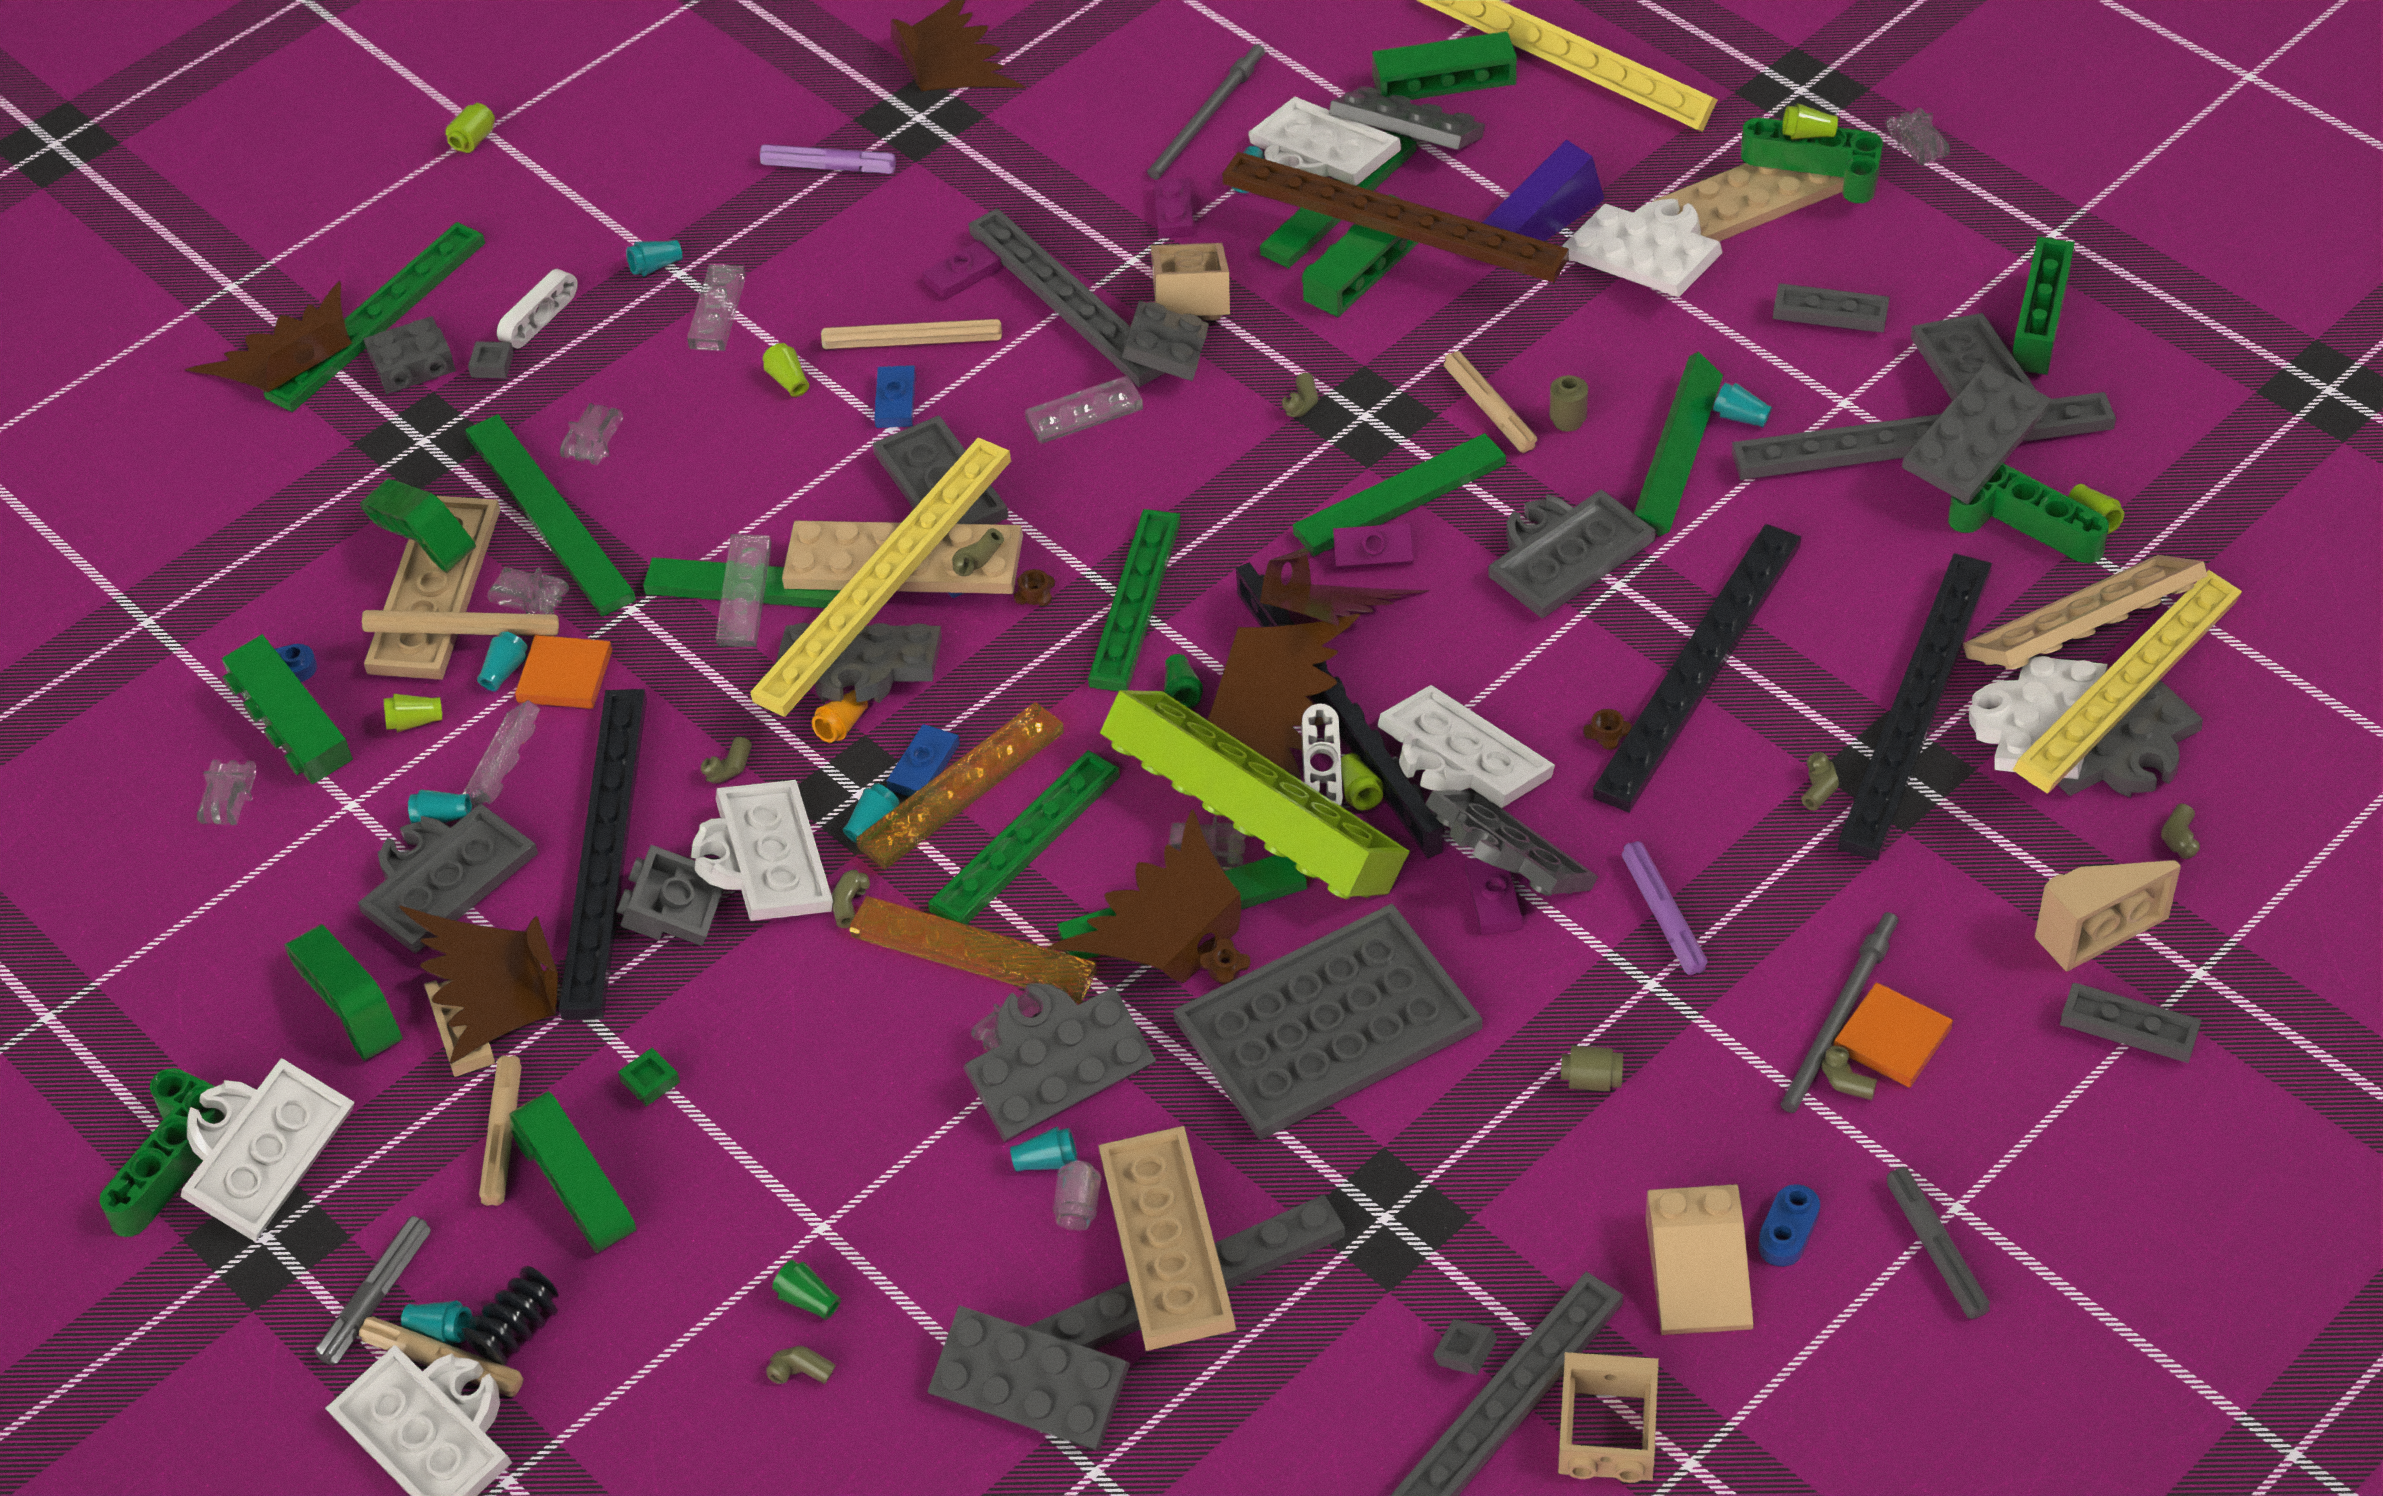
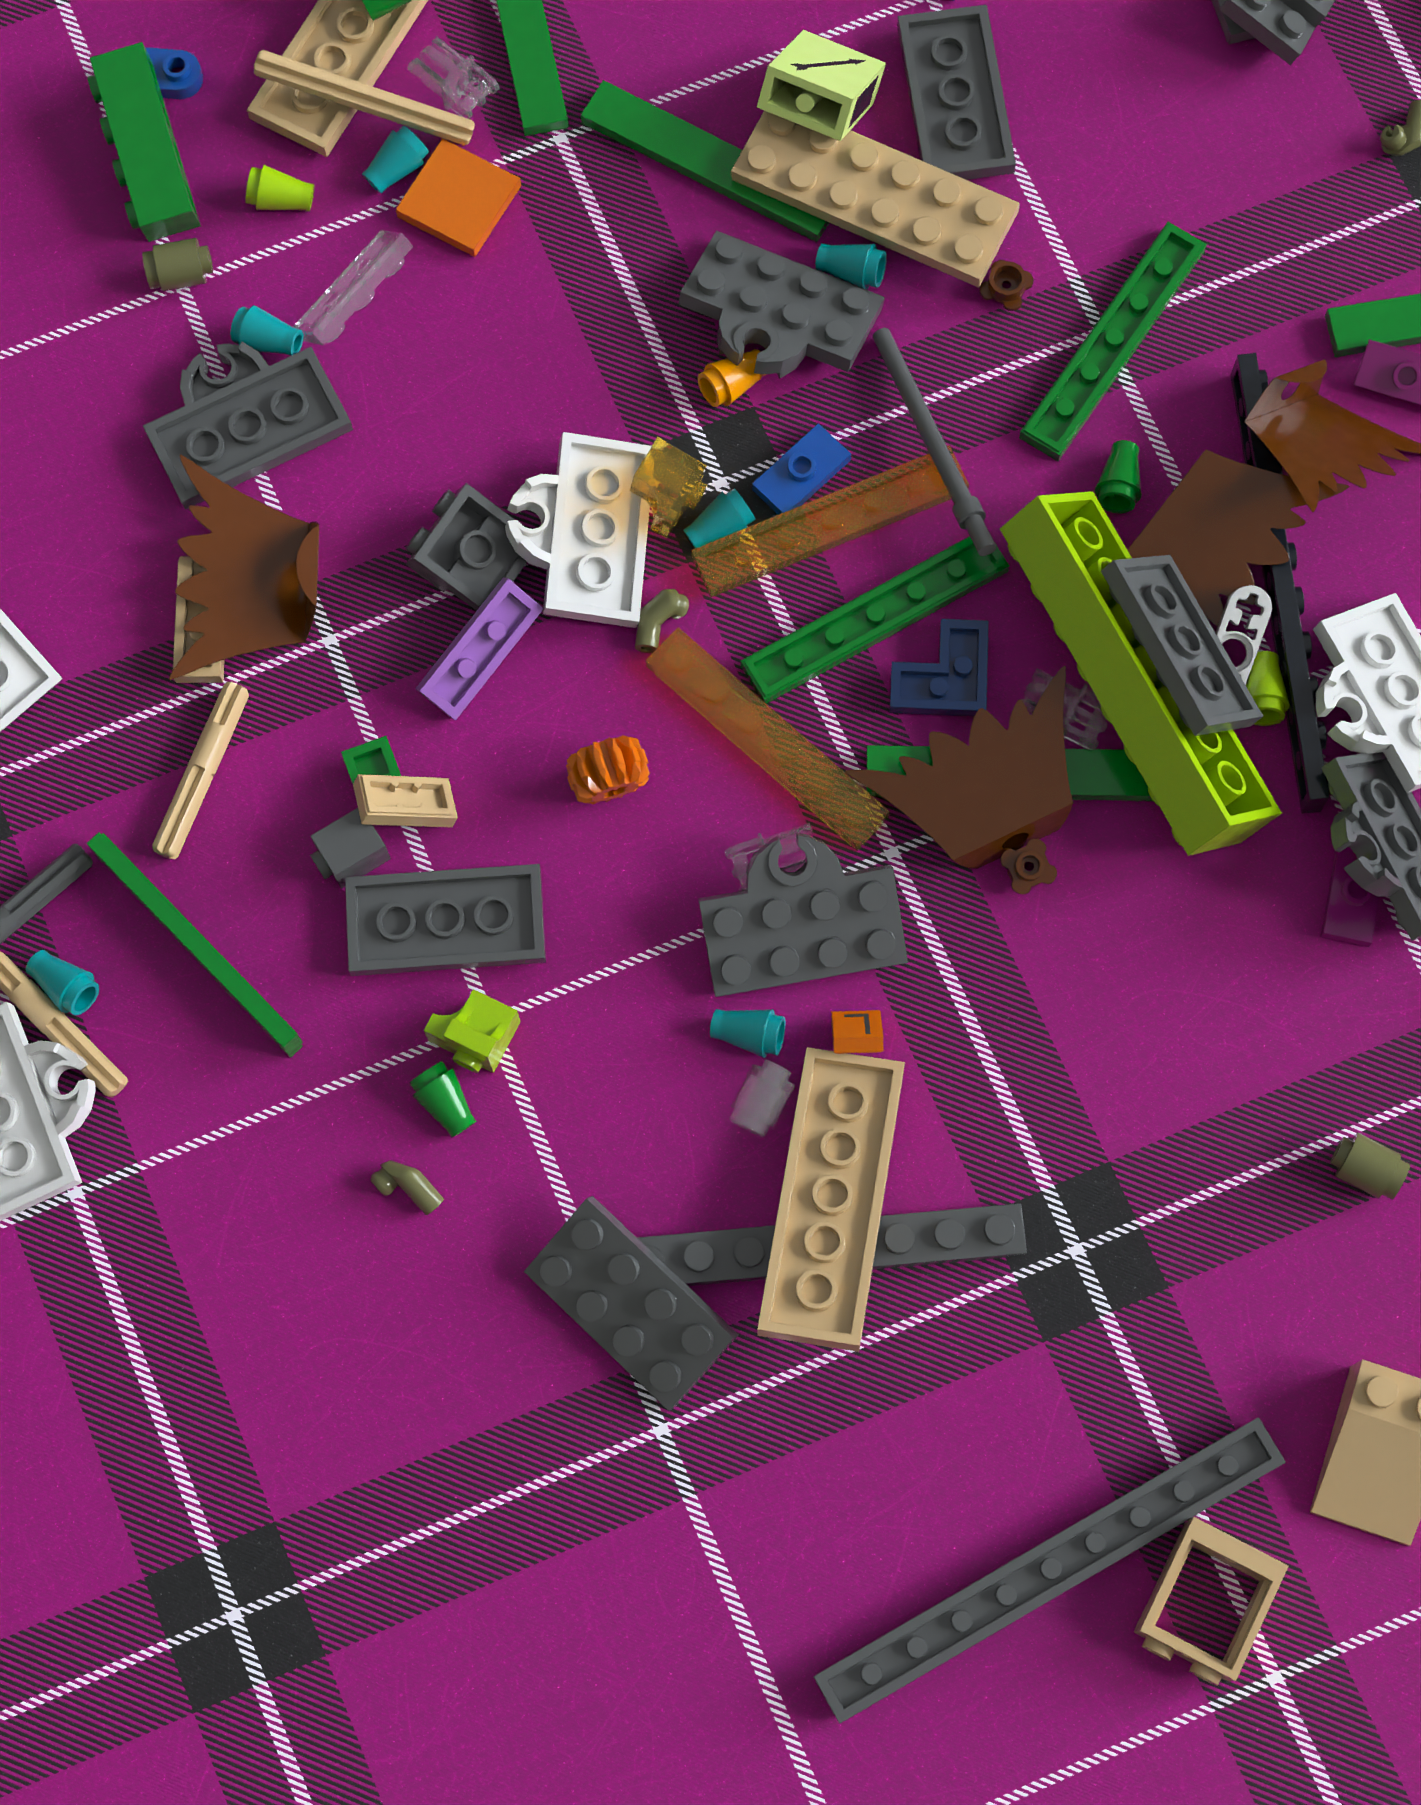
camera: 20 degrees right, 25 degrees up
(225, 792) = (52, 225): clear arm -> none
(345, 786) = (177, 264): none -> olive brick
(346, 990) = (91, 533): green beam -> none
(511, 1315) = (135, 1014): black piece -> none
(546, 1252) = (196, 944): none -> green tile
(551, 1139) = (250, 863): green beam -> none
(603, 856) = (420, 459): black plate -> none
(652, 1138) = (348, 848): none -> dark grey brick
(686, 1085) = (405, 801): none -> tan plate
(706, 961) = (479, 648): none -> medium lavender plate
(720, 771) = (592, 396): olive arm -> none
(743, 590) = (684, 169): clear plate -> none
(755, 1162) = (445, 920): none -> dark grey plate
(813, 1231) = (476, 1032): none -> lime brick
(818, 794) = (669, 484): none -> clear yellow brick
(830, 498) = (821, 85): none -> yellowish green brick
(849, 1005) = (607, 769): none -> orange gear
(880, 577) = (838, 220): light yellow plate -> none
(907, 610) = (855, 263): none -> teal cone
(977, 554) = (952, 232): olive arm -> none
(1066, 730) = (966, 507): none -> dark grey bar
(1083, 409) = (1153, 55): clear plate -> none
(1106, 862) = (954, 684): none -> dark blue plate
(1135, 1121) = (857, 1031): none -> orange tile
(1278, 756) = (1181, 644): none -> dark grey plate
(1326, 1020) = (1110, 986): dark grey plate -> none
(1465, 1346) = (1095, 1452): dark grey plate -> none

